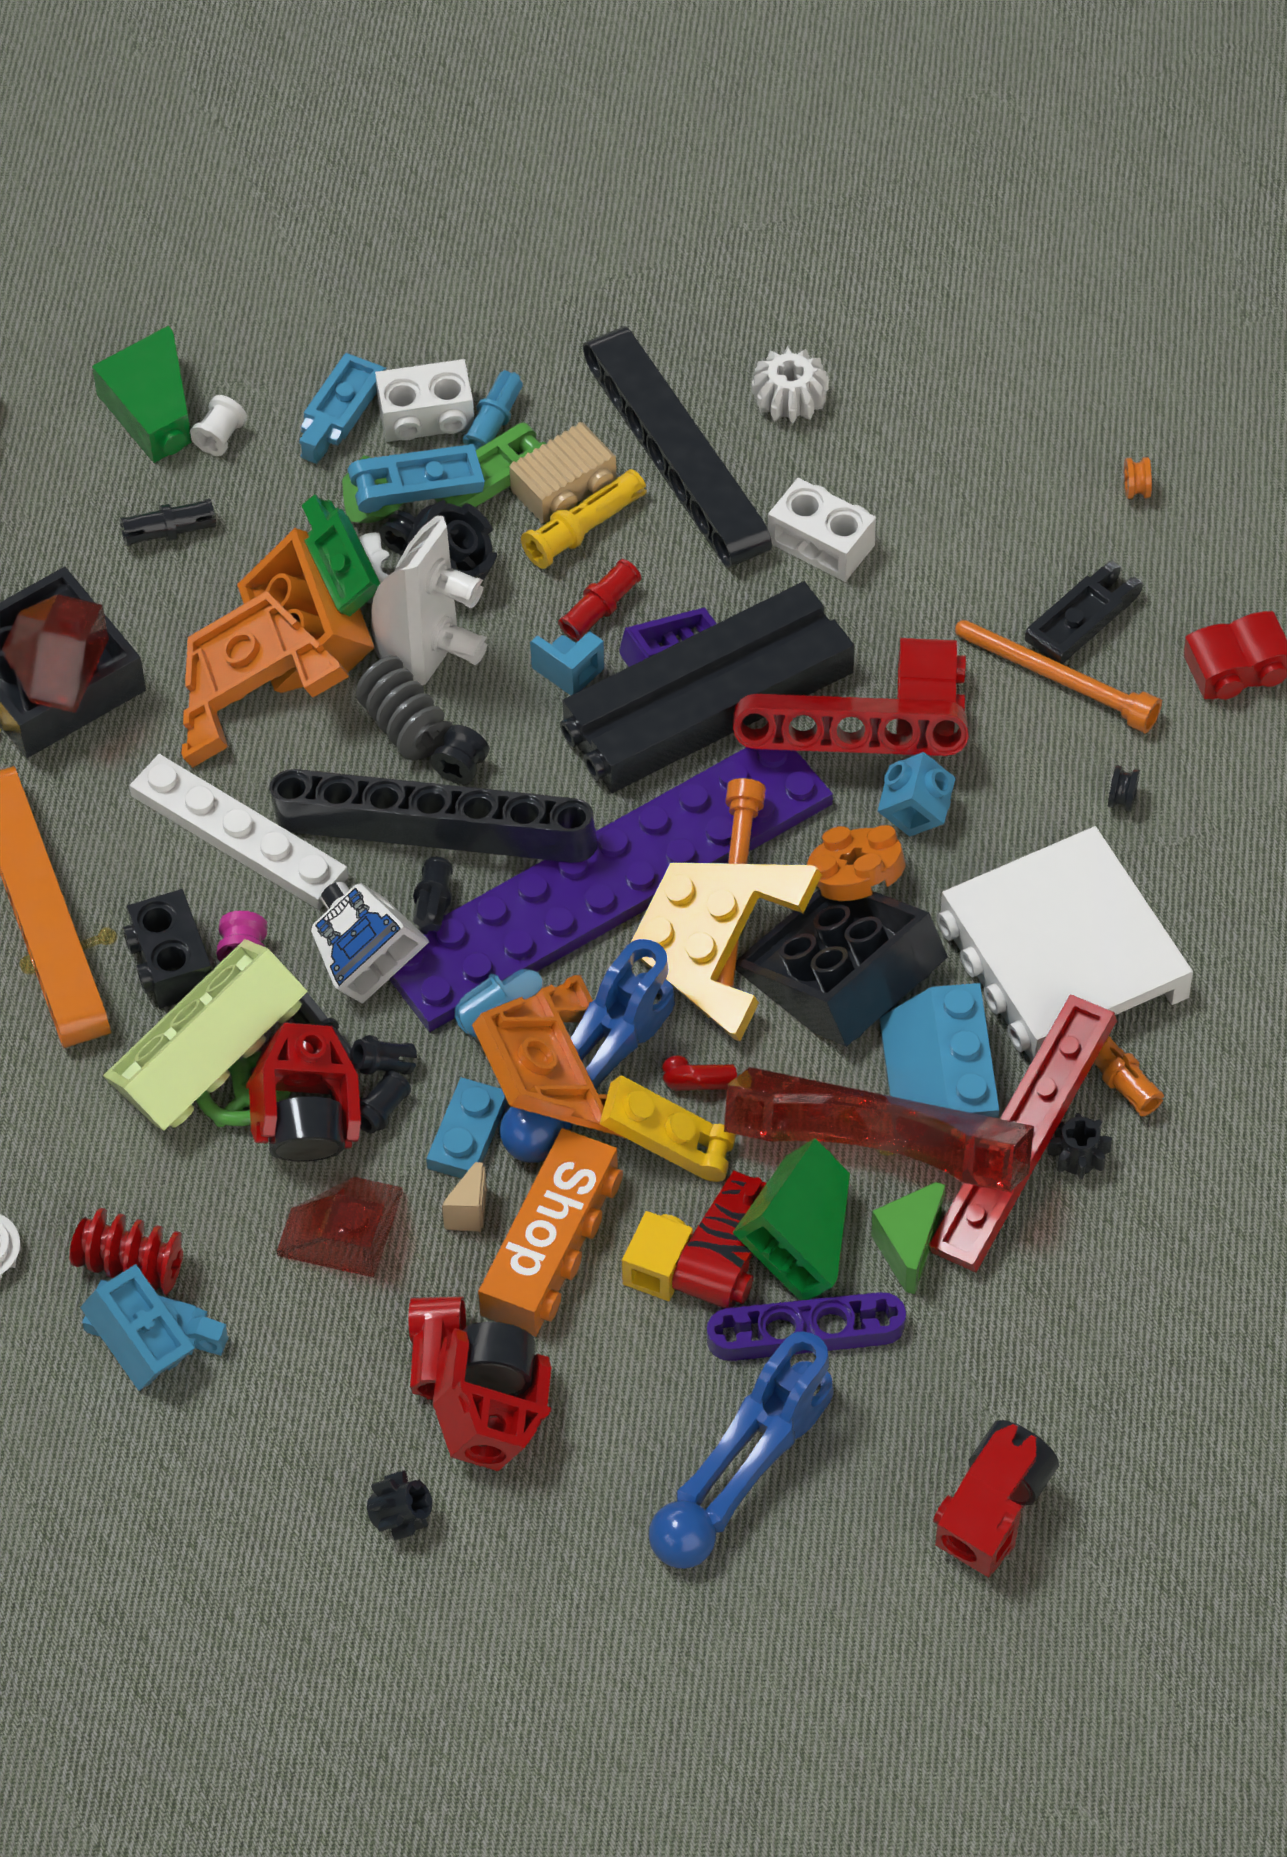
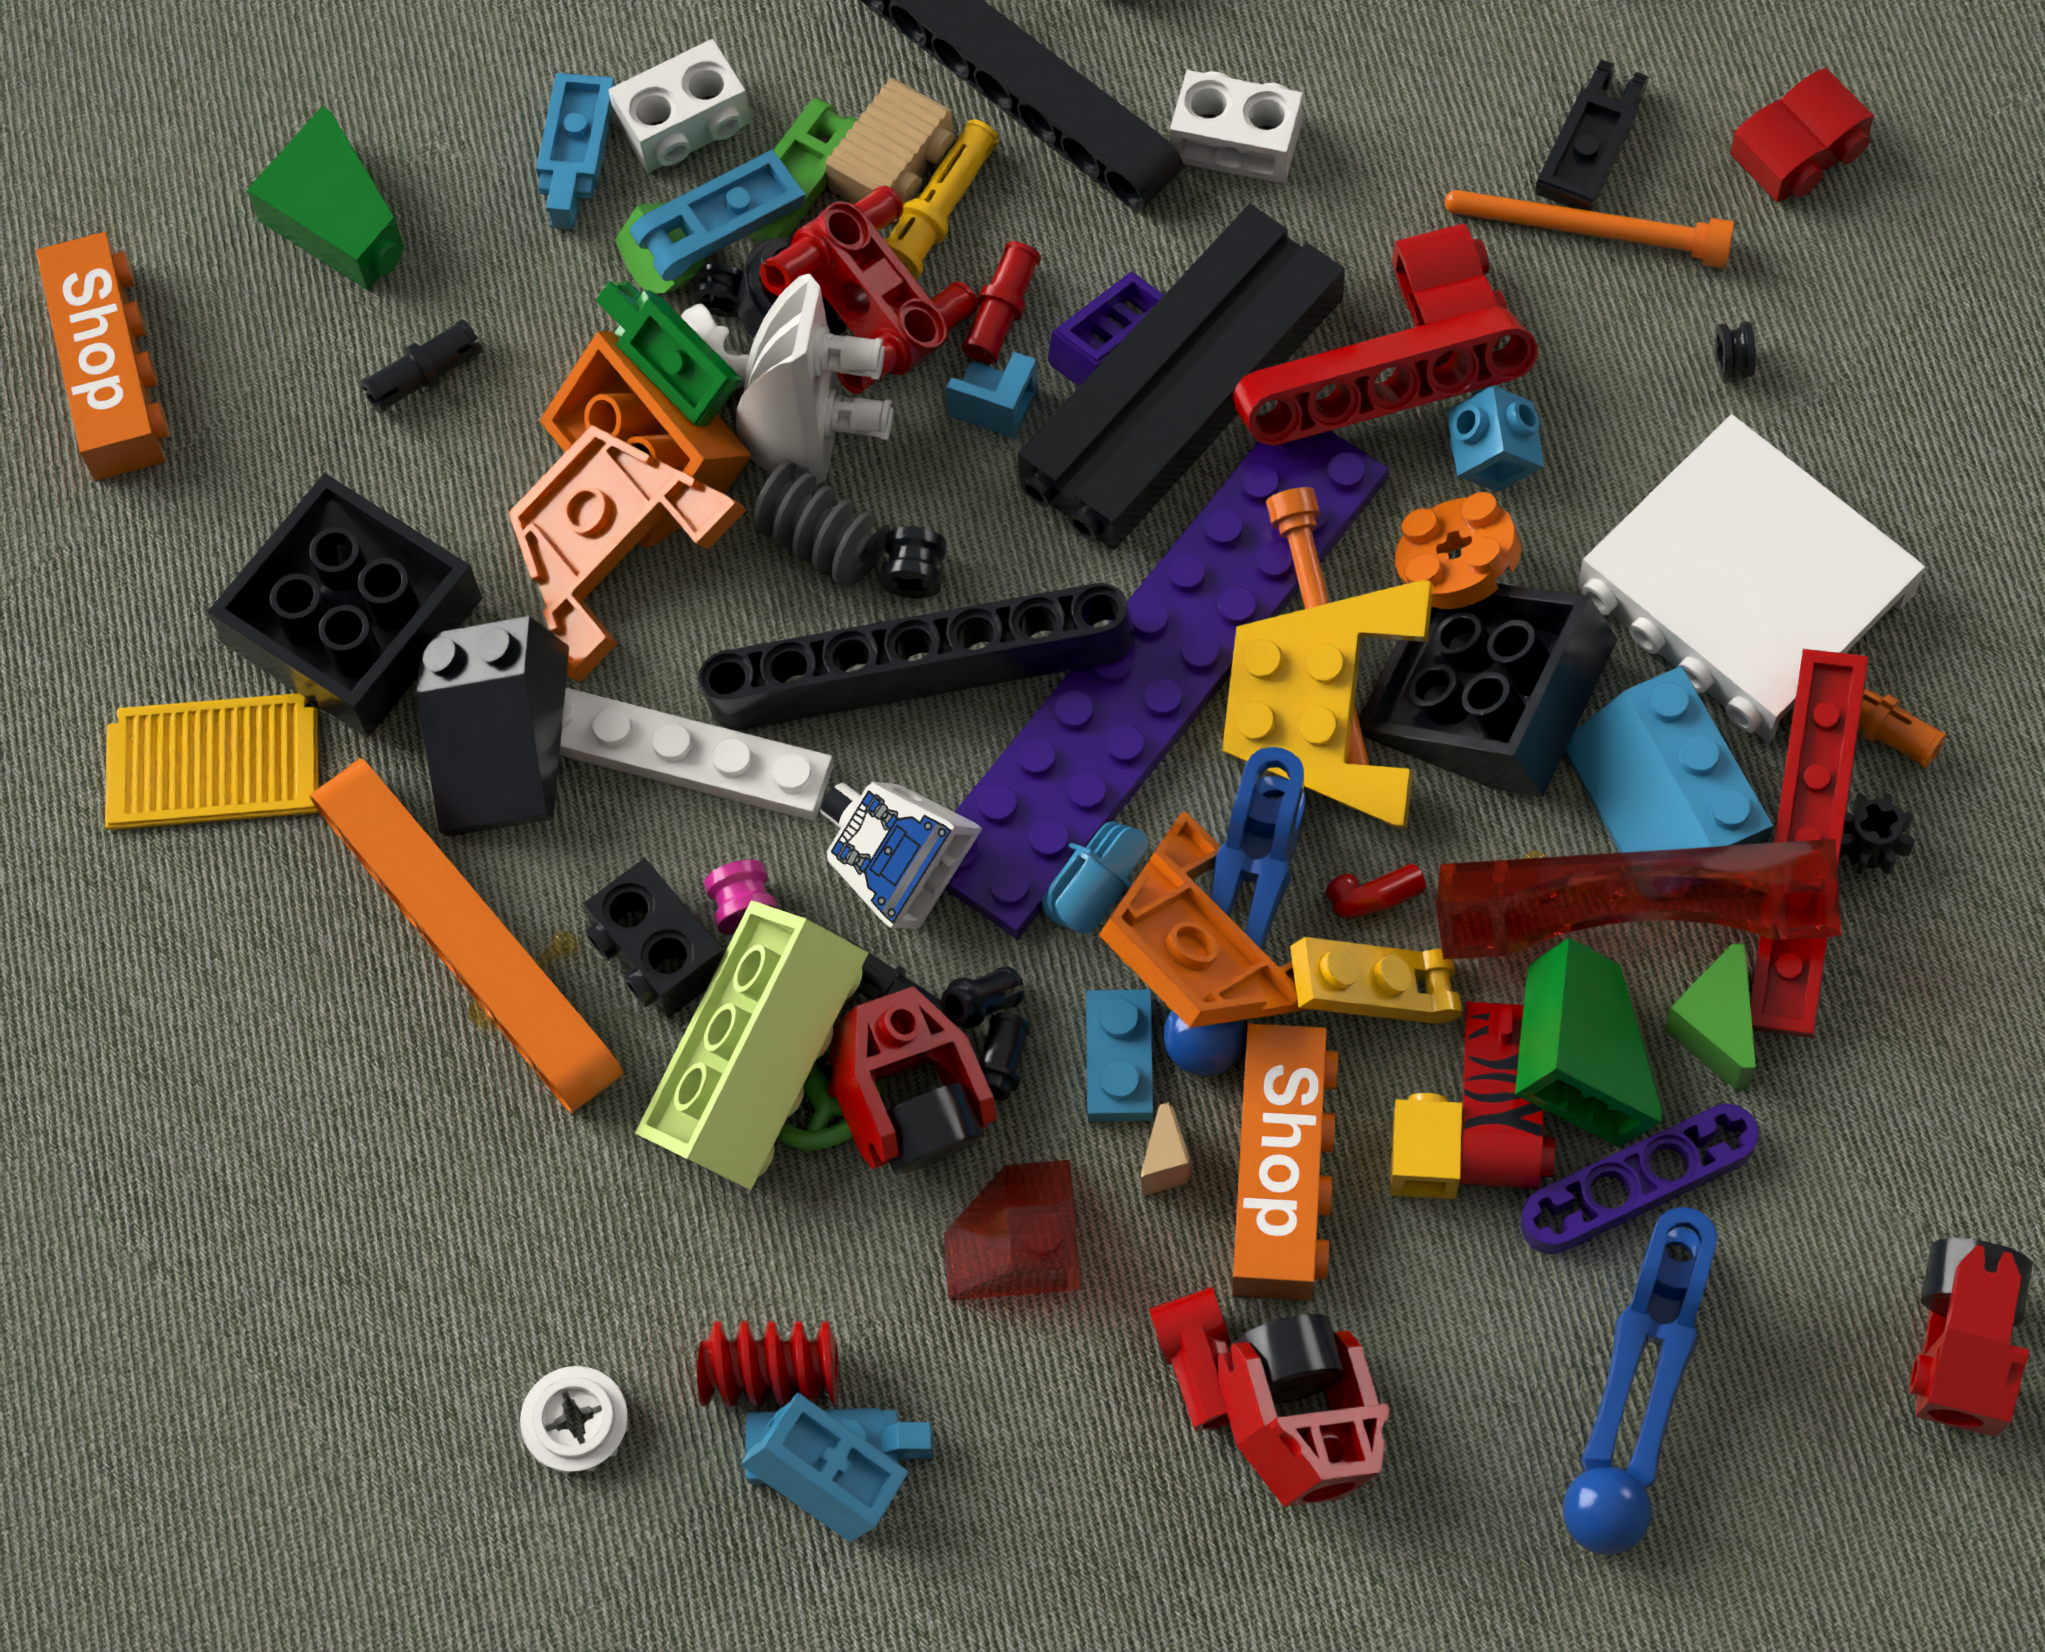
camera: 15 degrees left, 10 degrees up
(57, 649) = (362, 593): clear red slope -> none
(115, 768) = (492, 723): none -> black slope
(218, 425) = (433, 217): white bush -> none
(399, 1505) = (1245, 1592): black gear -> none
(432, 894) = (956, 761): black axle -> none
(494, 410) = (769, 94): dark azure axle -> none
(504, 556) = (870, 283): none -> red piece

